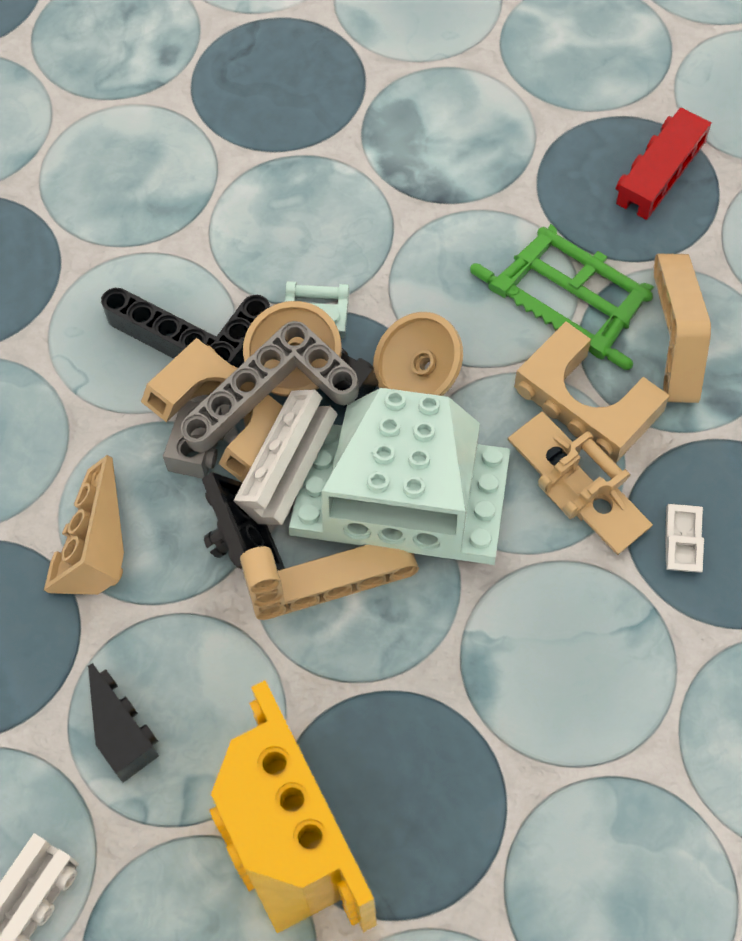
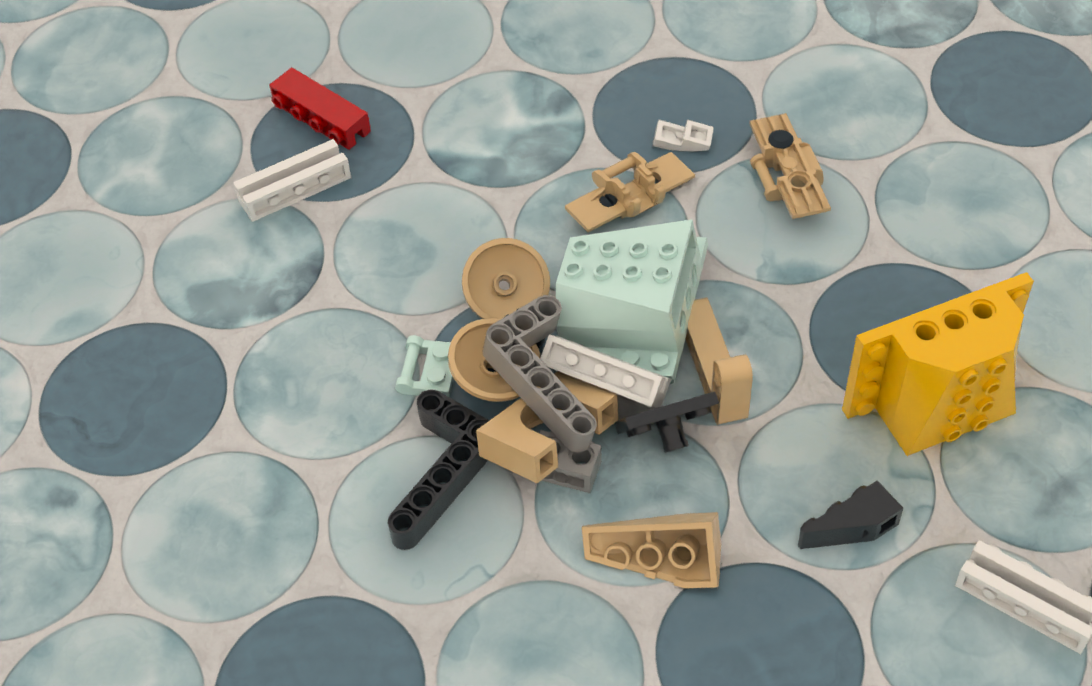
camera: 85 degrees left, 10 degrees down
(530, 257) = (424, 227): bright green piece -> none
(554, 155) = (292, 180): none -> white brick
(612, 427) = (535, 203): tan arch -> none
(644, 668) = (802, 173): none -> tan piece
(687, 326) = (491, 95): tan beam -> none

